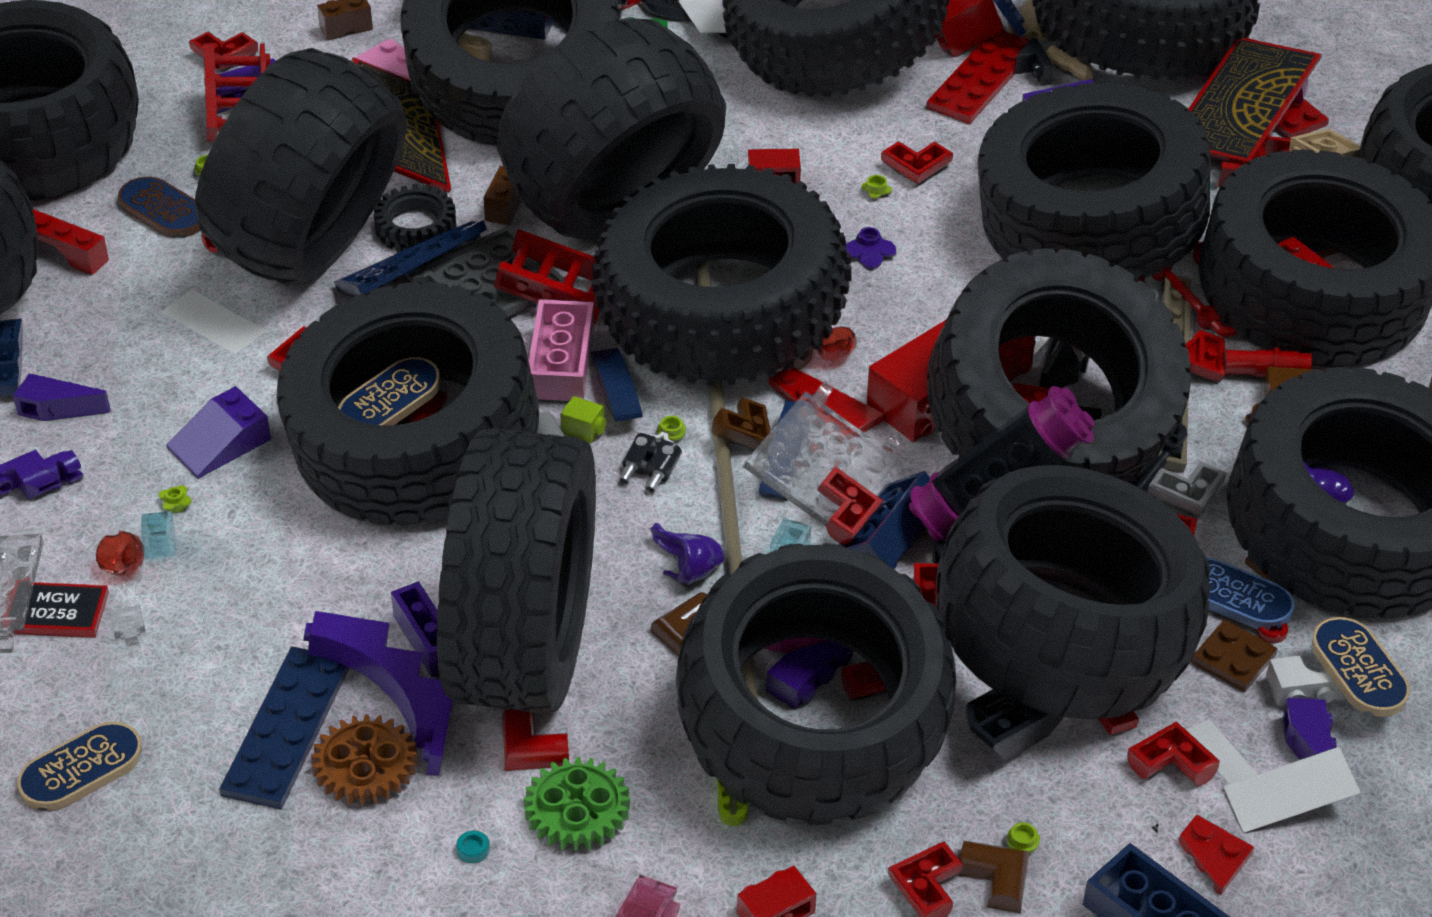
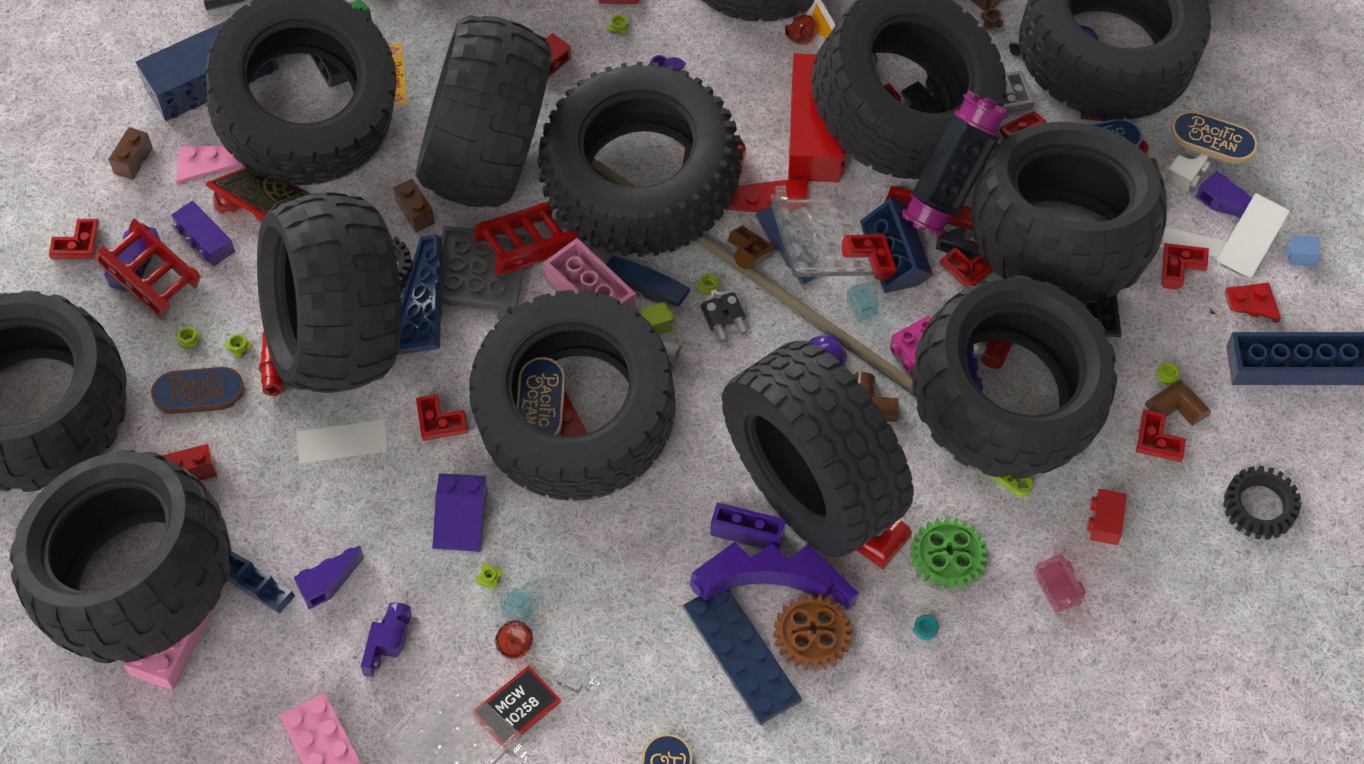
camera: 45 degrees left, 15 degrees up
(1336, 848) = (1303, 250): none -> medium blue brick

